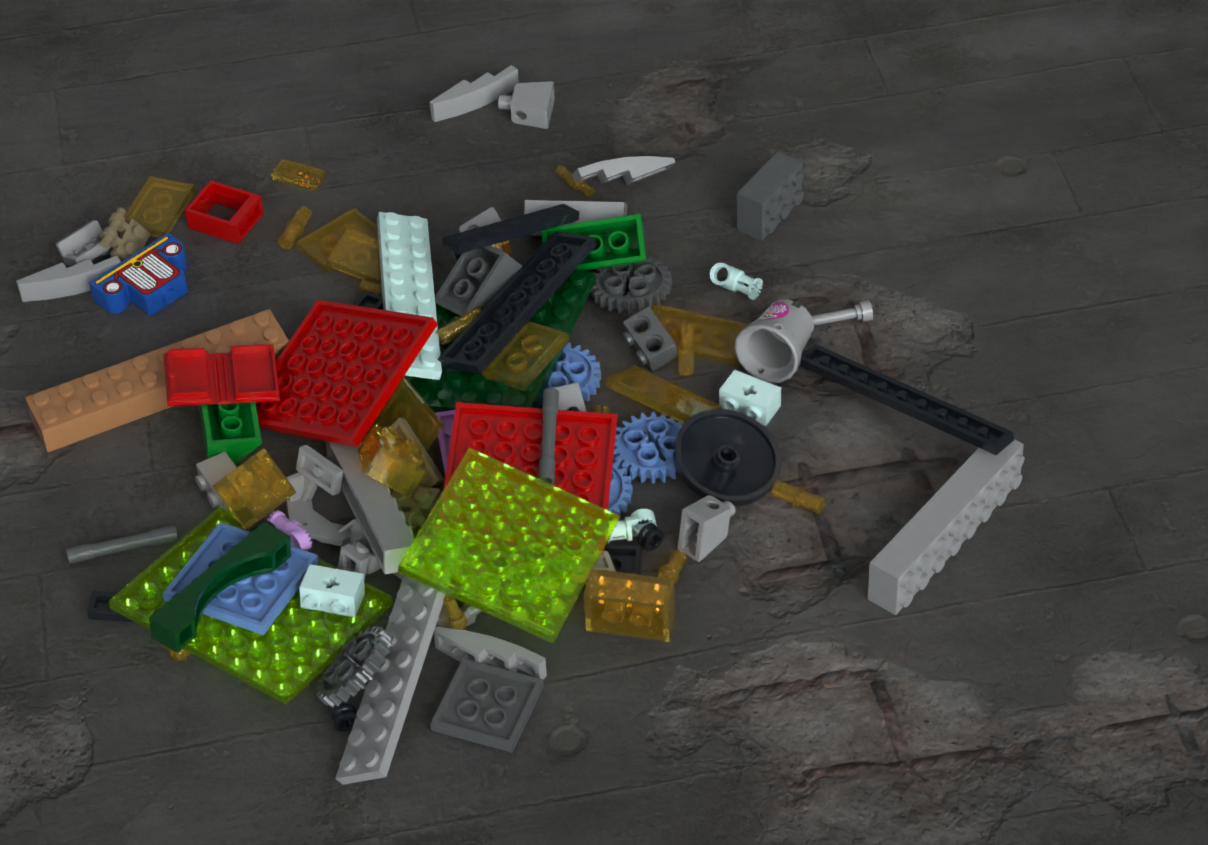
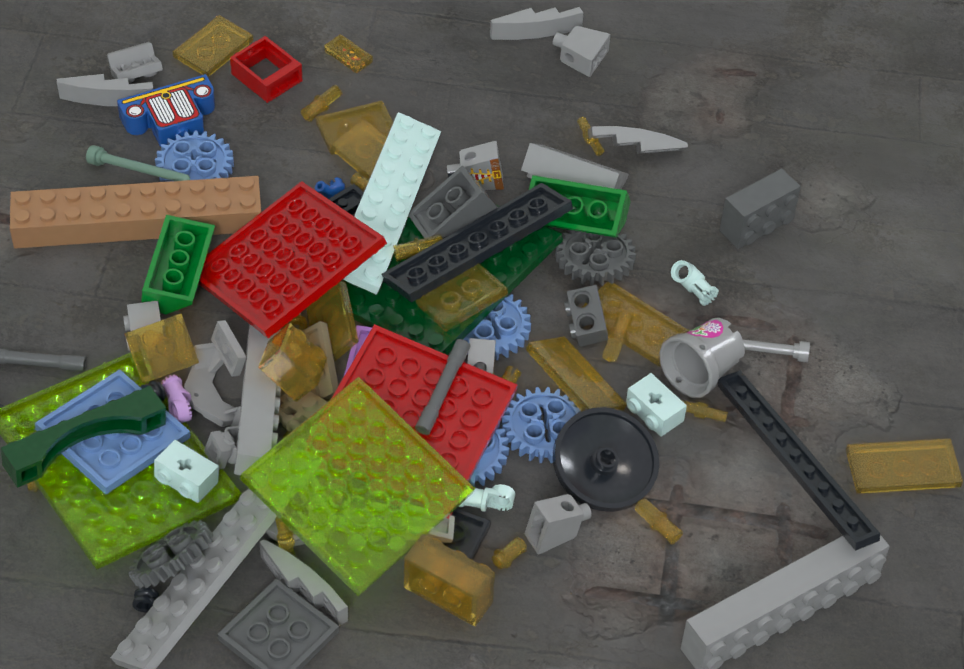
camera: 15 degrees right, 5 degrees up
(92, 341) = (98, 156): none -> sand green piece
(132, 236) = (173, 71): dark tan plate -> none
(192, 314) = (196, 156): none -> medium blue gear
(221, 378) = (183, 229): red piece -> none
(348, 298) = (329, 191): none -> blue arm
(510, 229) = (500, 168): black tile -> none
(650, 537) = (502, 514): black bush -> none
(795, 390) = (702, 410): none -> clear yellow bar
(1001, 380) = (903, 465): none -> clear yellow tile

